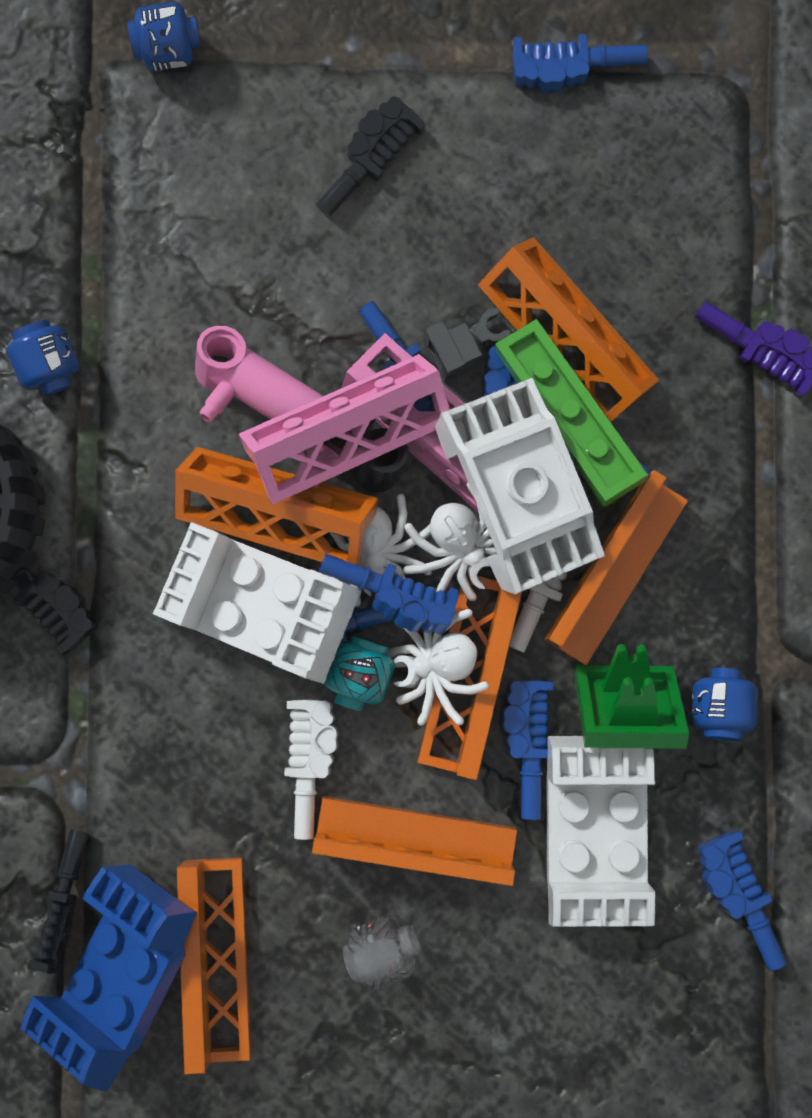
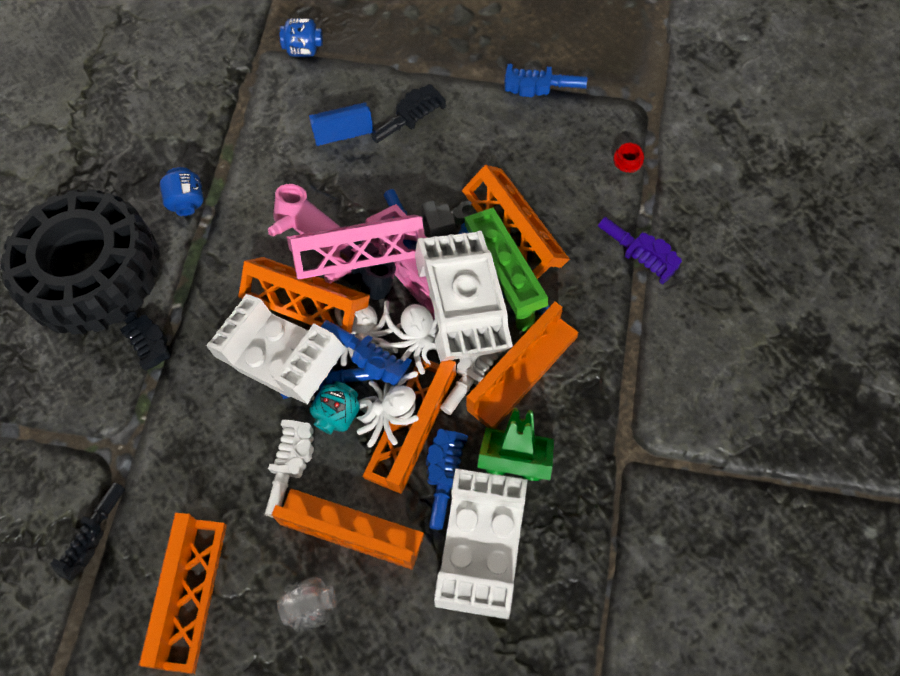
camera: 15 degrees right, 20 degrees down
(117, 978) = (113, 589): blue plate -> none
(264, 189) = (341, 123): none -> blue panel
(724, 705) = (585, 467): blue head -> none
(734, 177) = (630, 151): none -> red plate
(734, 885) = (577, 599): blue piece -> none

